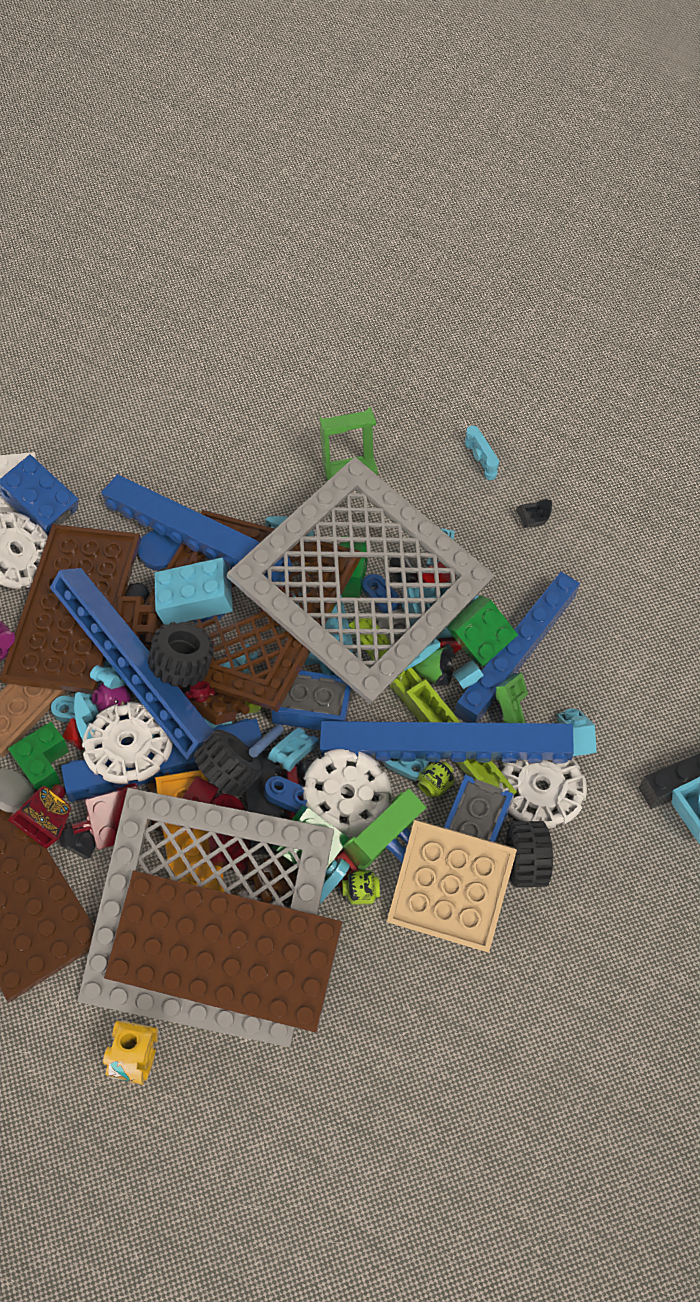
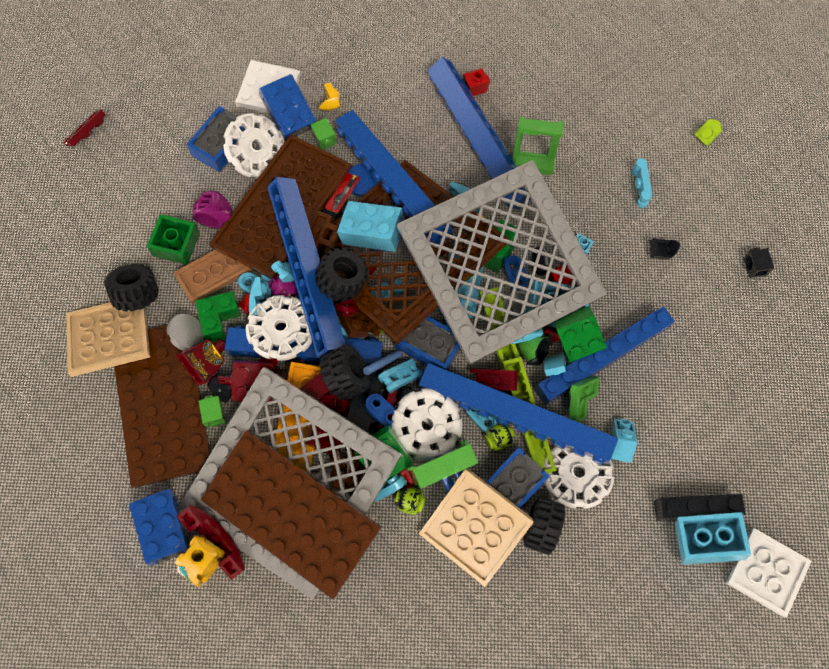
camera: 20 degrees right, 10 degrees up
(63, 1033) = (158, 528): none -> blue piece
(77, 872) = (212, 411): none -> bright green brick
(86, 469) = (332, 98): none -> yellow plate
(91, 512) = (323, 134): none -> bright green brick
(112, 1003) = (211, 530): none -> dark red slope
(141, 570) = (342, 193): none -> red sticker
(250, 403) = (477, 81): none -> red brick
(265, 445) = (474, 122): none -> blue brick
(413, 710) = (497, 378): none -> dark red hinge
(532, 376) = (709, 131): none -> lime plate
(642, 495) = (758, 262): none -> black brick

